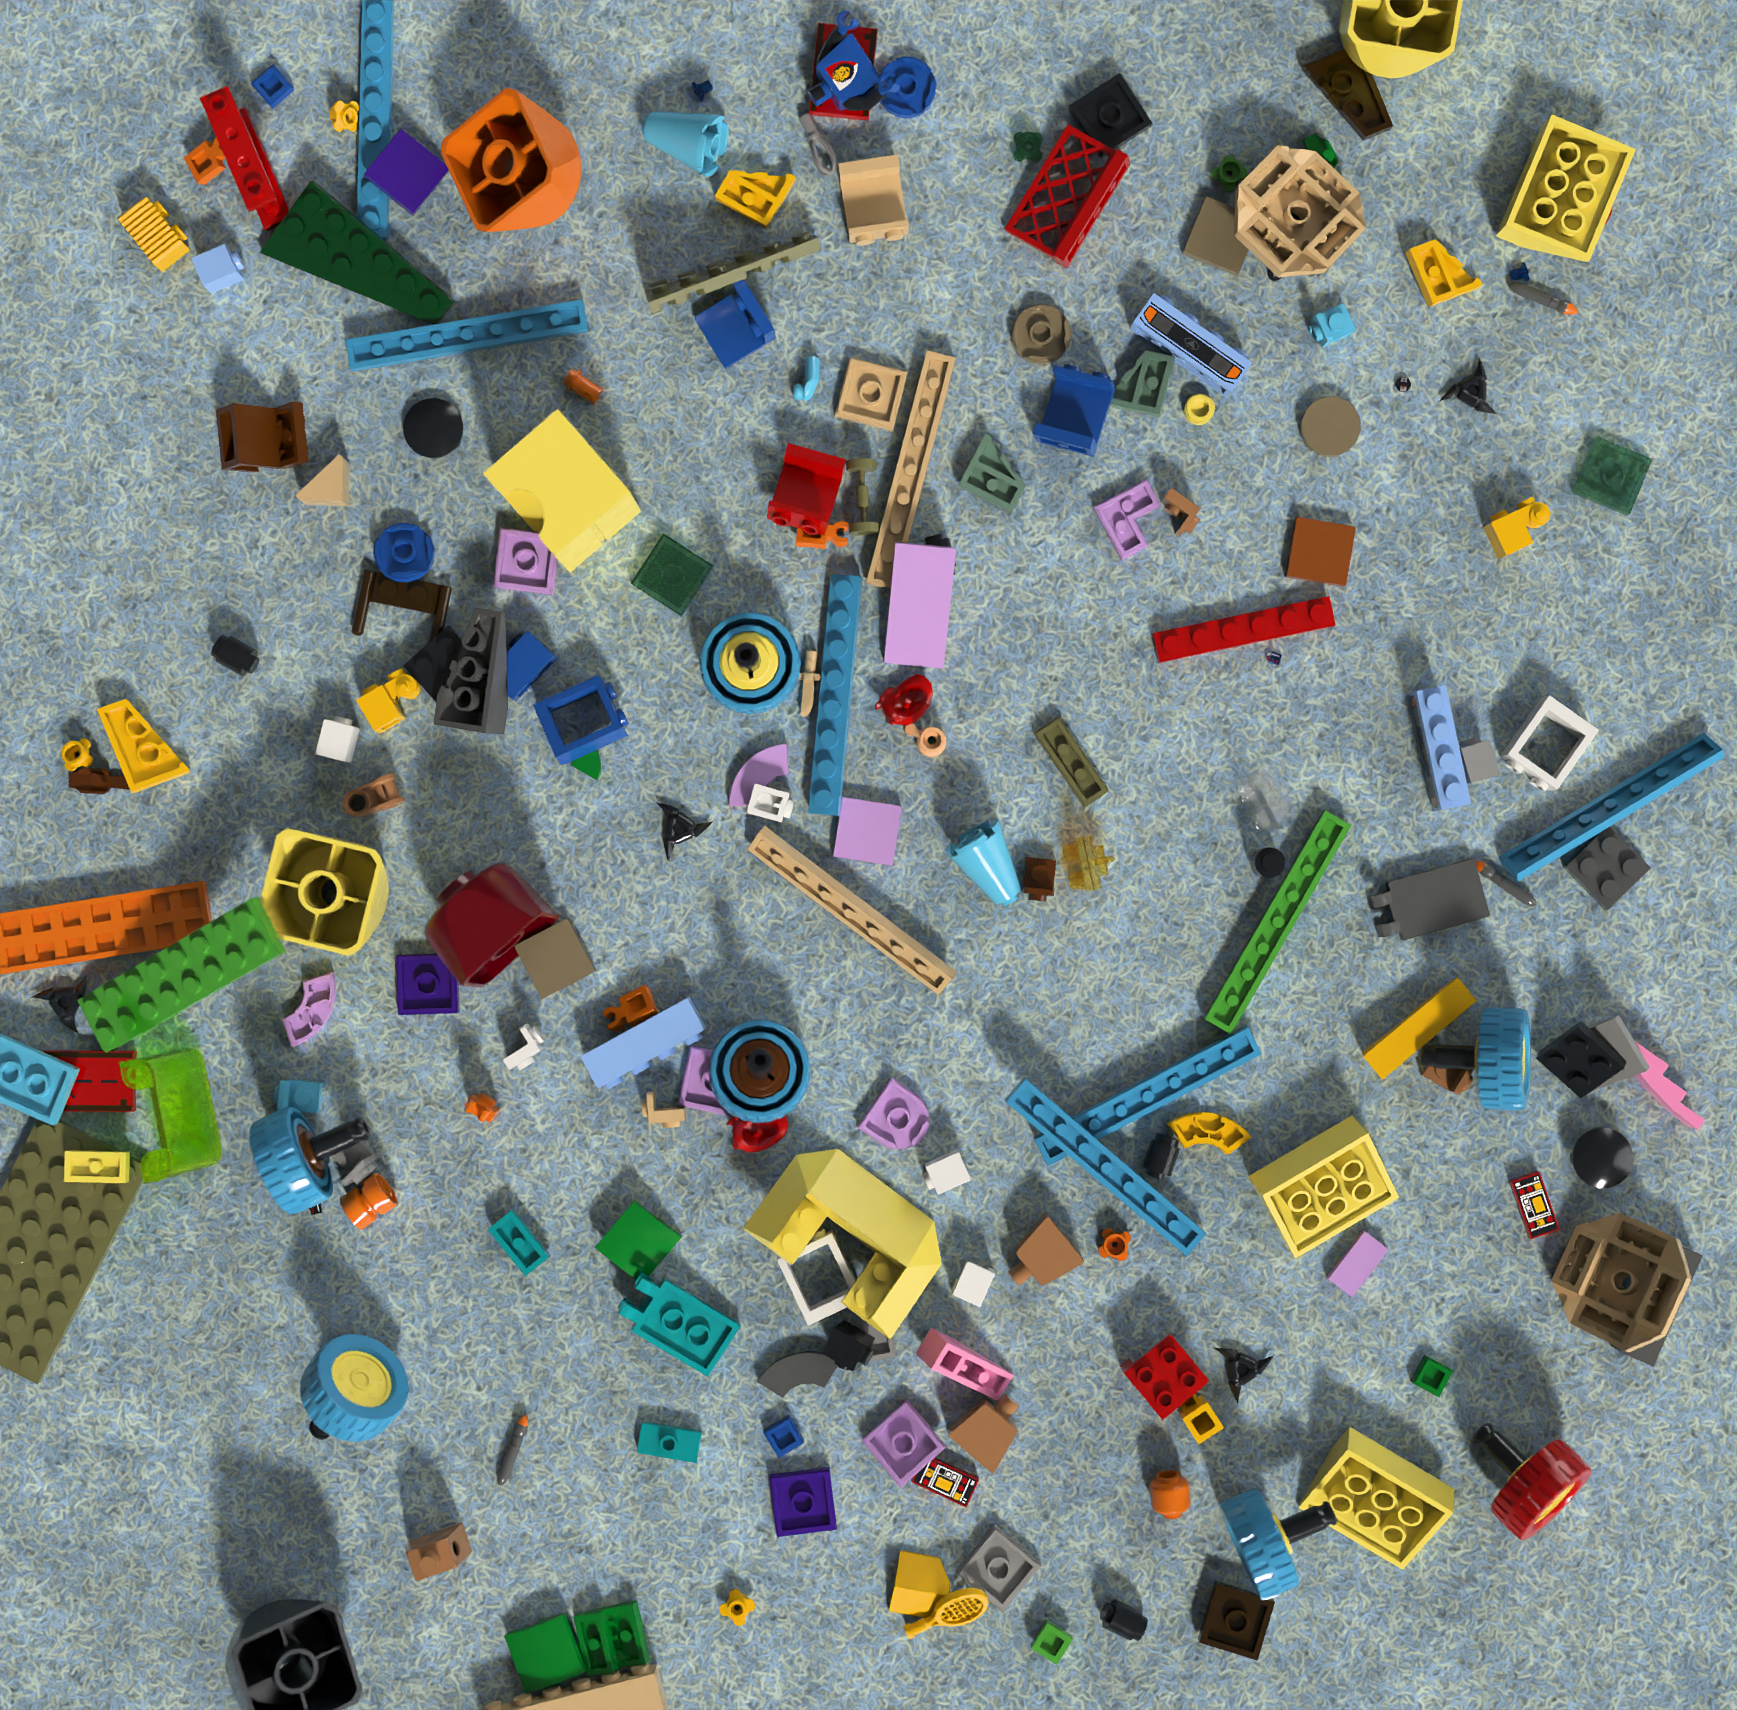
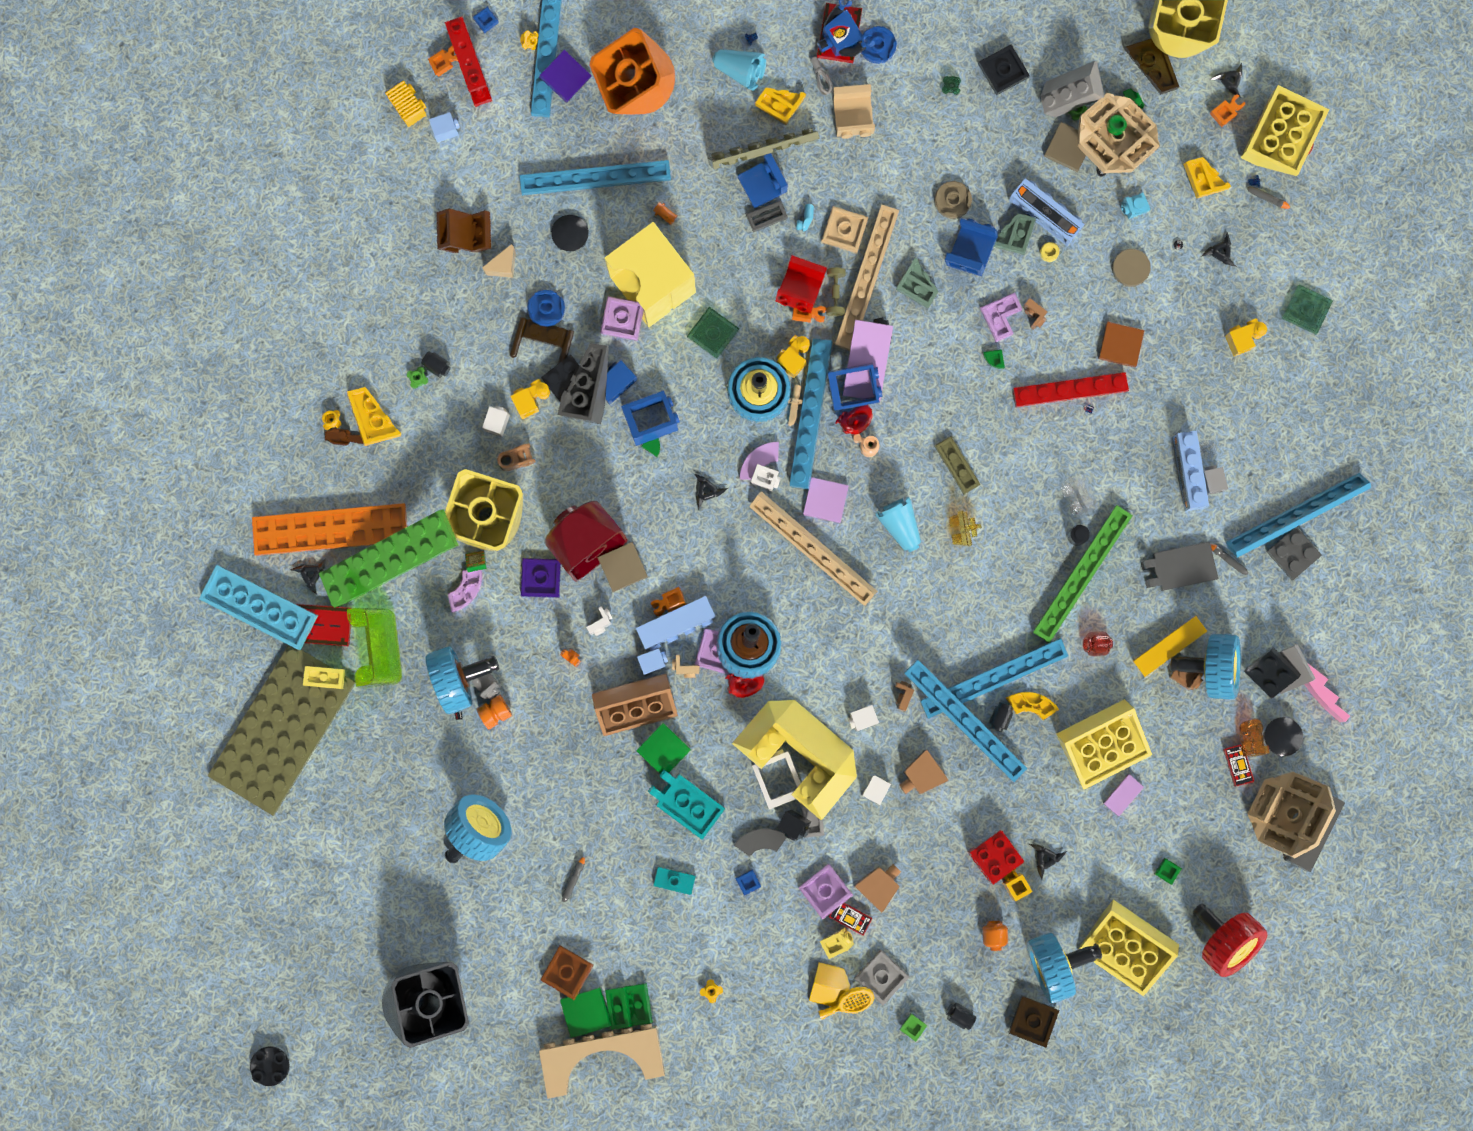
camera: 10 degrees right, 5 degrees down
(216, 681) = (417, 382): none -> bright green plate
(299, 1094) = (456, 641): medium azure bracket -> none
(322, 966) = (475, 561): none -> tile
(340, 248) = (520, 119): dark green wing -> none
(435, 1552) = (522, 940): medium nougat torso -> none
(512, 1594) = (567, 972): none -> dark orange tile
(519, 1242) = (587, 745): teal plate -> none
(587, 1174) = (634, 704): none -> medium nougat slope
(611, 1105) = (652, 661): none -> light blue brick
(773, 379) = (768, 223): none -> dark grey tile
(796, 609) = (790, 359): none -> yellow brick
(803, 1502) = (758, 925): dark purple tile -> none
(875, 676) = (877, 392): none -> blue window
(896, 1117) = (833, 682): lavender tile -> none
(927, 1521) = (837, 943): none -> light yellow bracket
(963, 1364) = (867, 842): bright pink slope -> none
(1008, 1138) = (904, 699): none -> medium nougat bracket
(1039, 878) = (932, 536): reddish brown bracket -> none
(1089, 209) = (989, 121): red fence -> none
(1120, 1250) = (973, 772): orange plate -> none
(1121, 587) = (995, 358): none -> green tile
(1222, 143) = (1072, 90): none -> light grey slope
(1296, 197) = (1116, 125): none -> green tile
(1305, 1031) = (1097, 643): none -> clear red head
(1470, 162) = (1226, 112): none -> orange plate
(1482, 100) = (1236, 75): none -> black piece
(1554, 1164) = (1252, 738): none -> clear orange leg
(1566, 719) = (1270, 457): white window -> none

